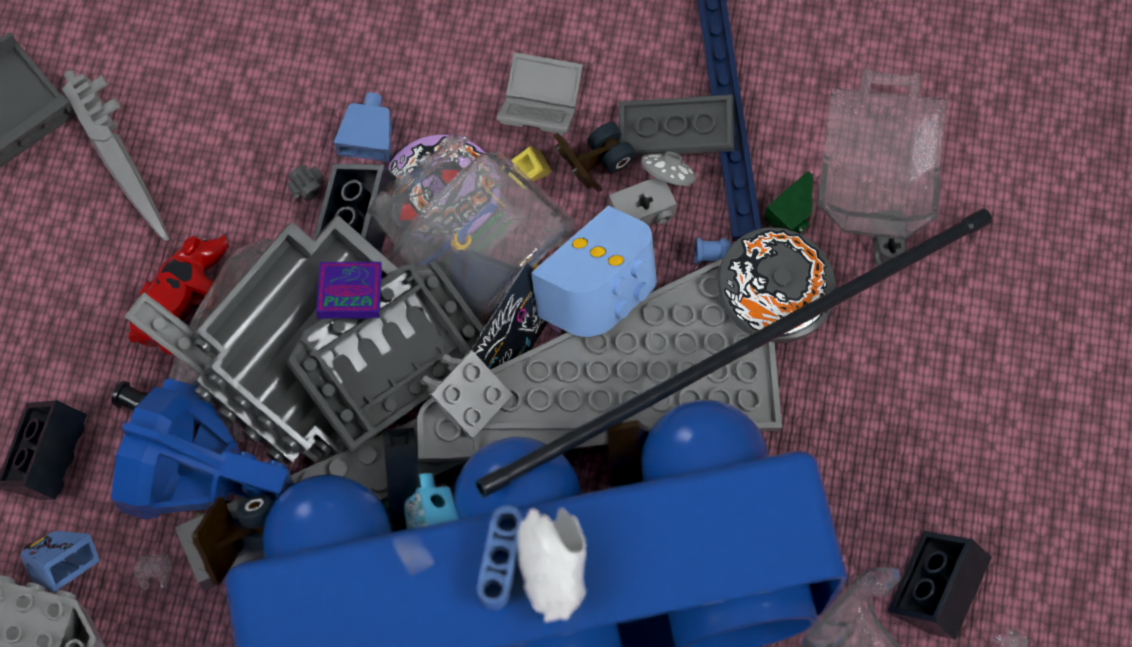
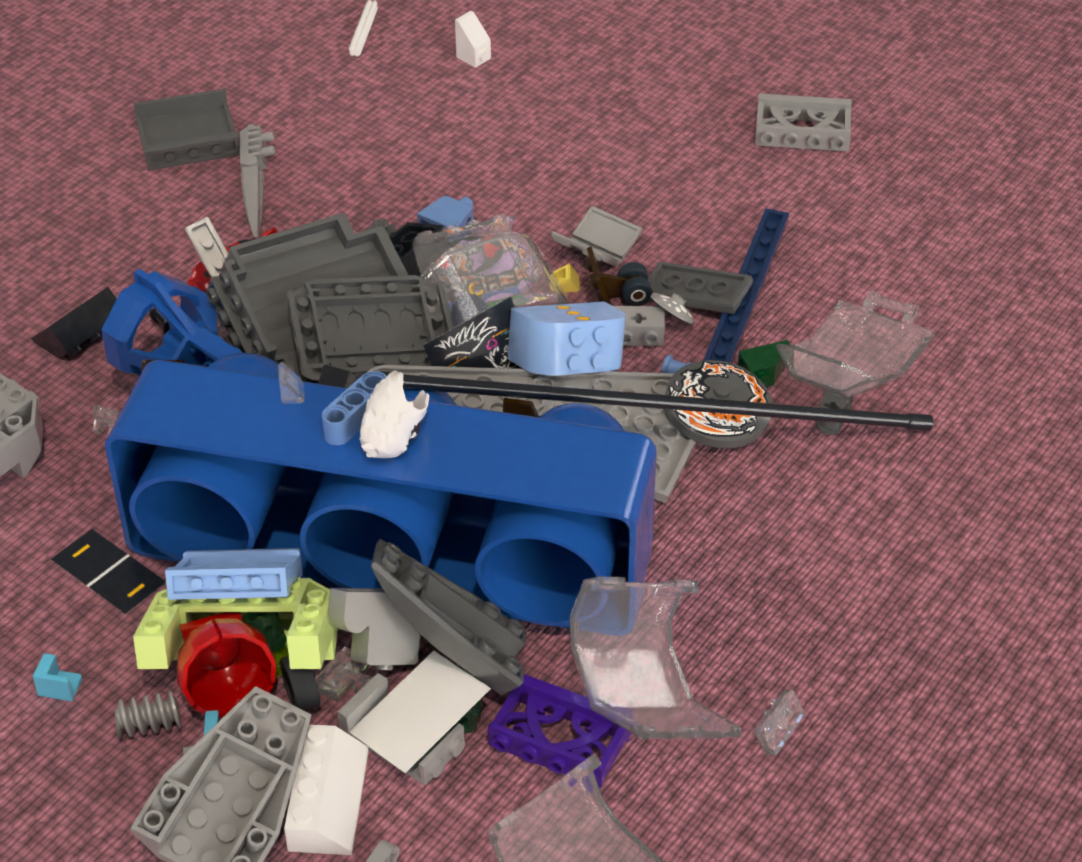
camera: 25 degrees right, 25 degrees down
(59, 558) = (42, 381): medium blue torso -> none
(349, 290) = (362, 269): dark purple tile -> none
(468, 393) = (416, 358): light grey plate -> none
(940, 583) = (746, 645): black slope -> none

